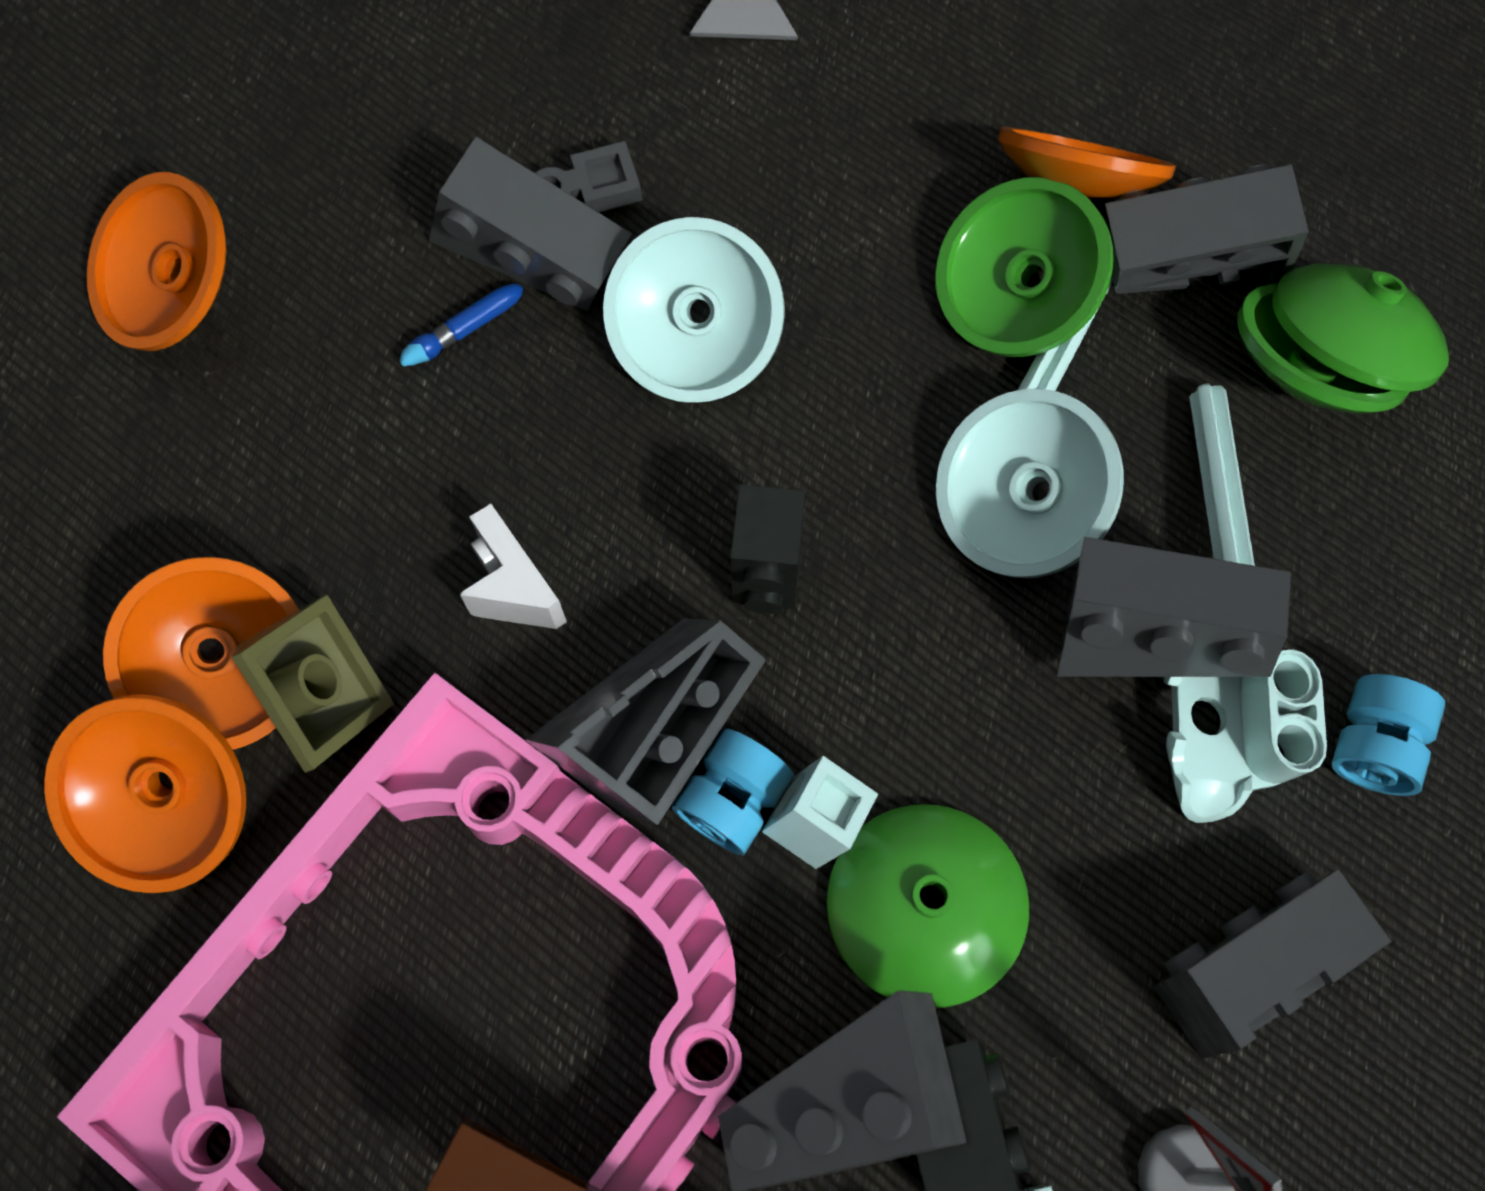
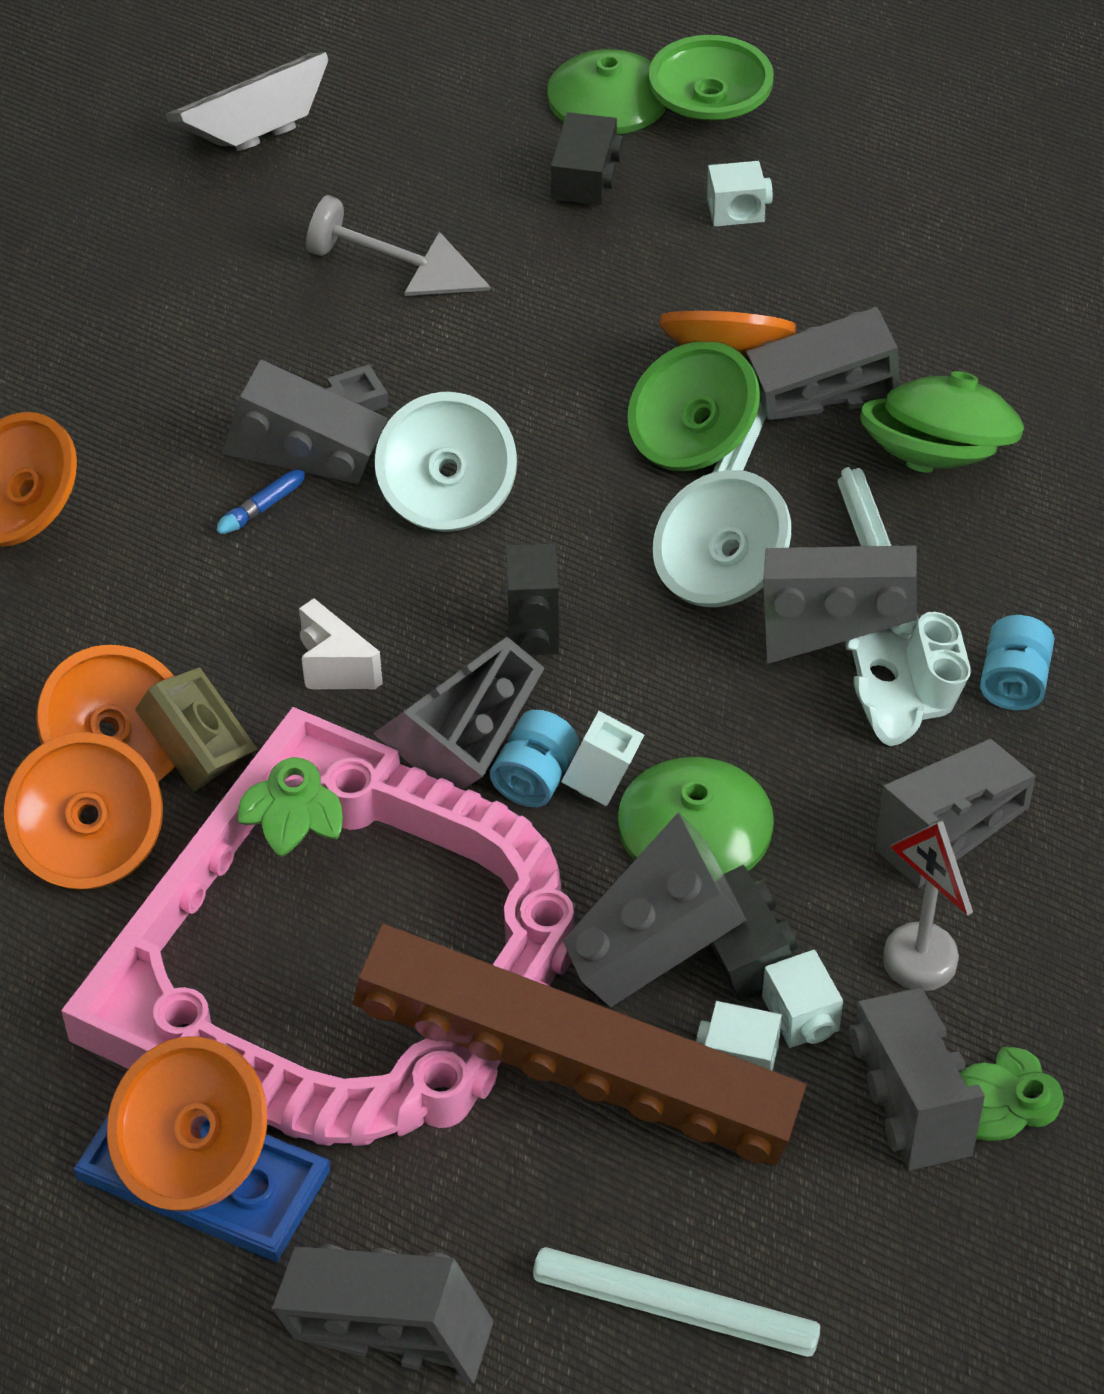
camera: 10 degrees left, 20 degrees down
(399, 855) = (291, 811): none -> bright green plate

